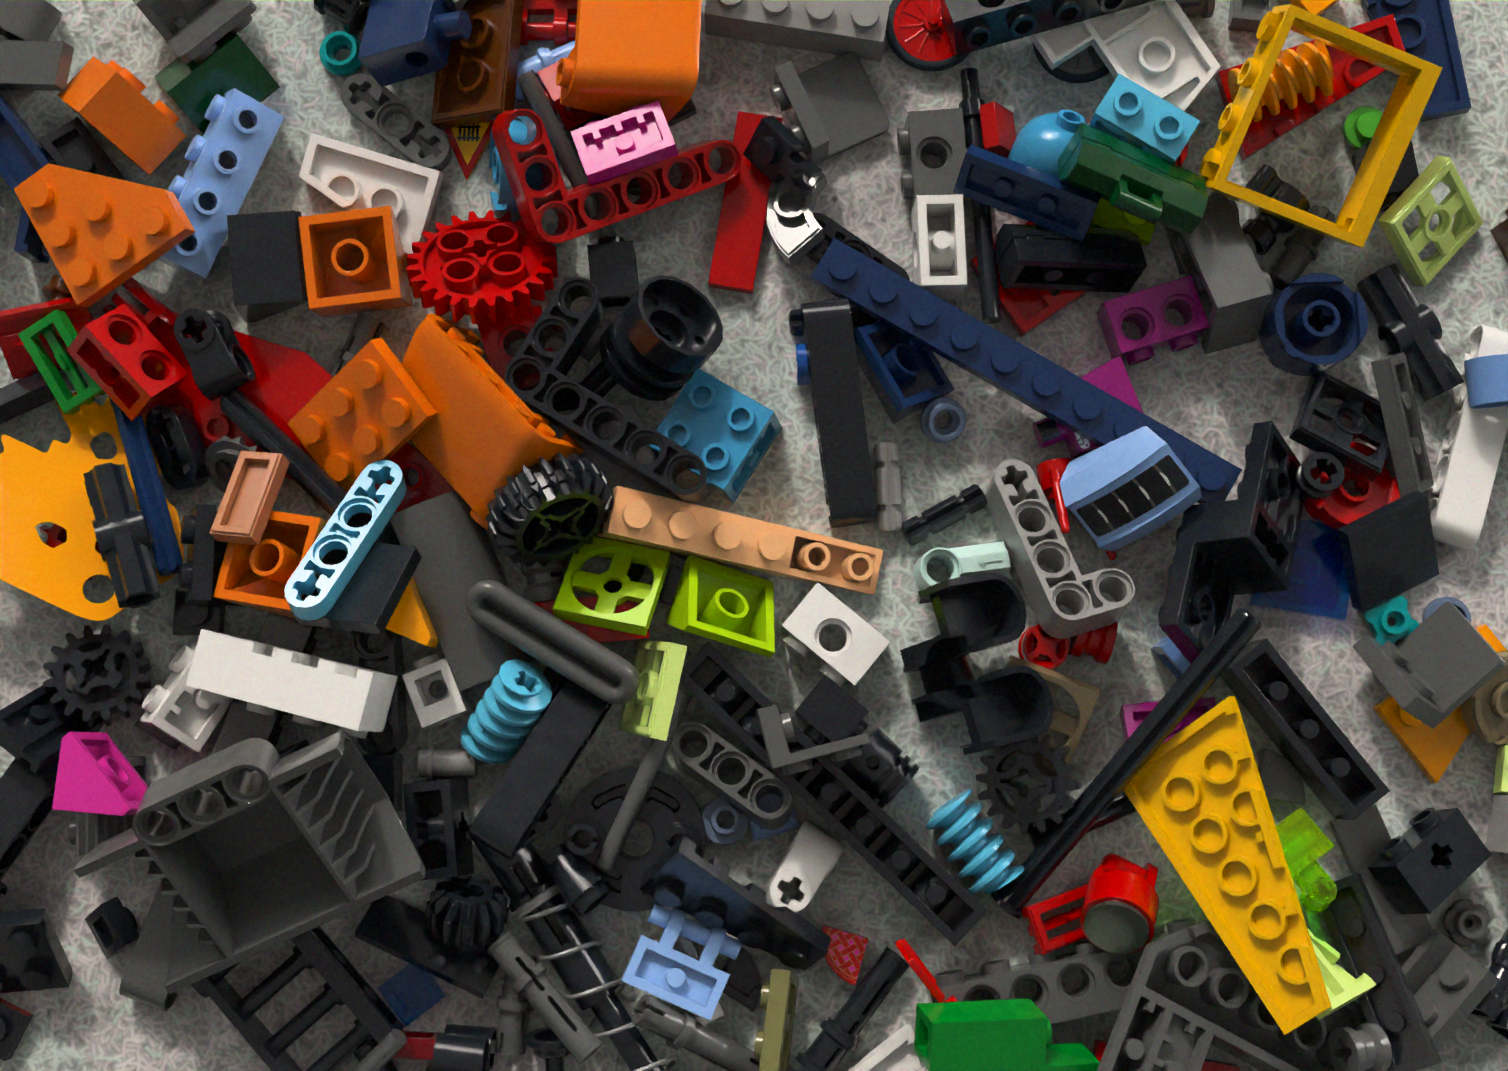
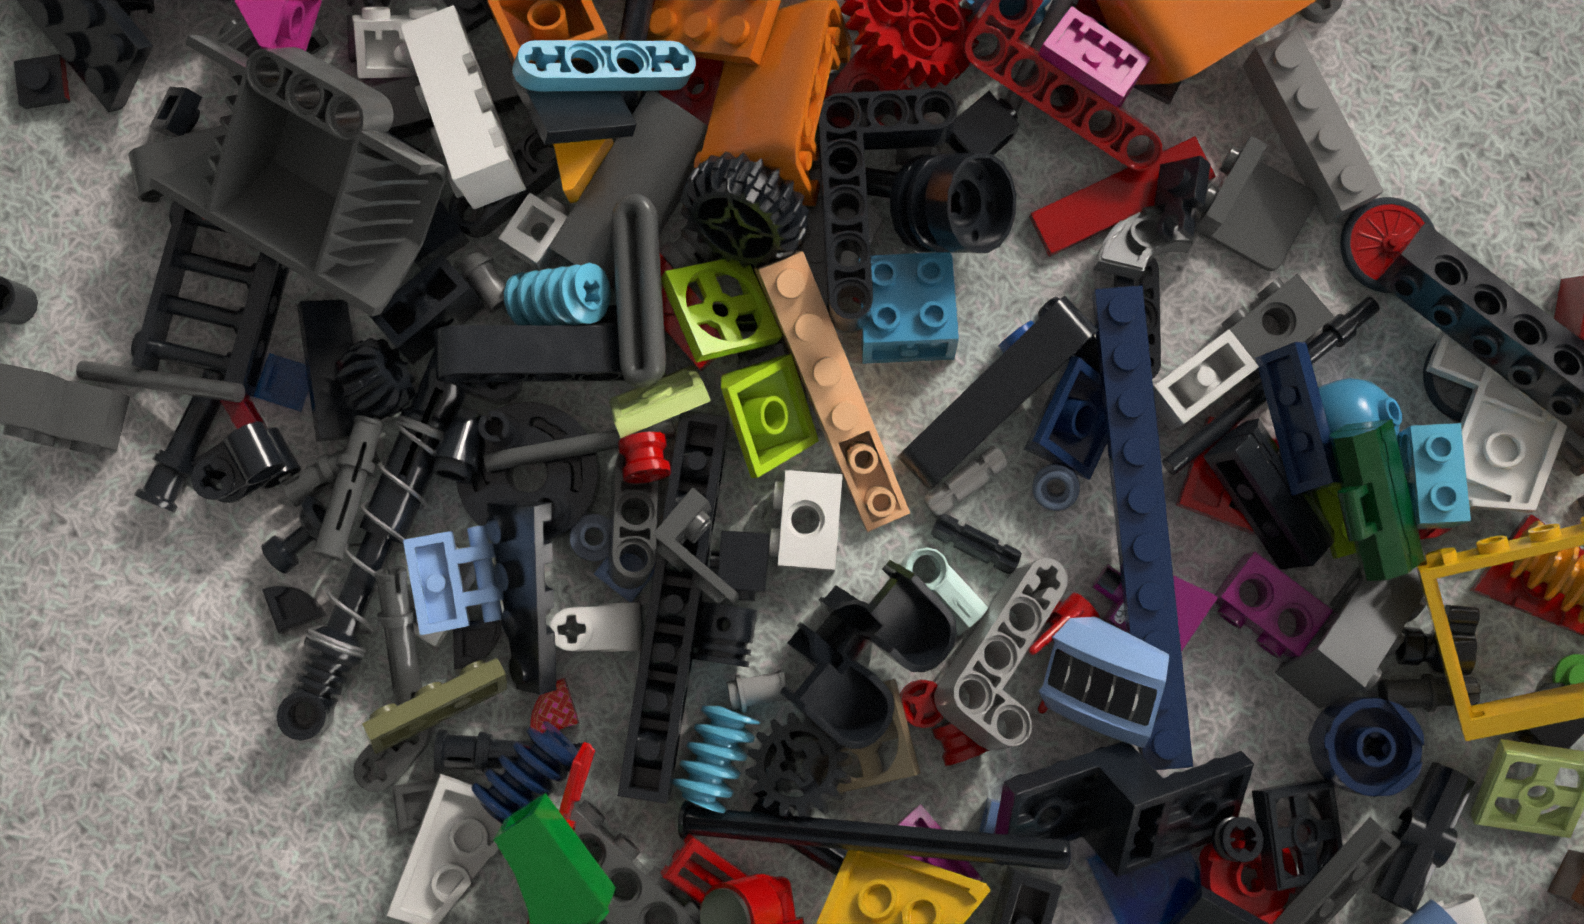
camera: 55 degrees right, 0 degrees up
(694, 732) = (644, 457): none -> red wheel
(887, 1008) = (527, 775): none -> dark blue piece
(941, 773) = (755, 690): none -> light grey pin
(997, 128) = (1340, 359): red tile -> none

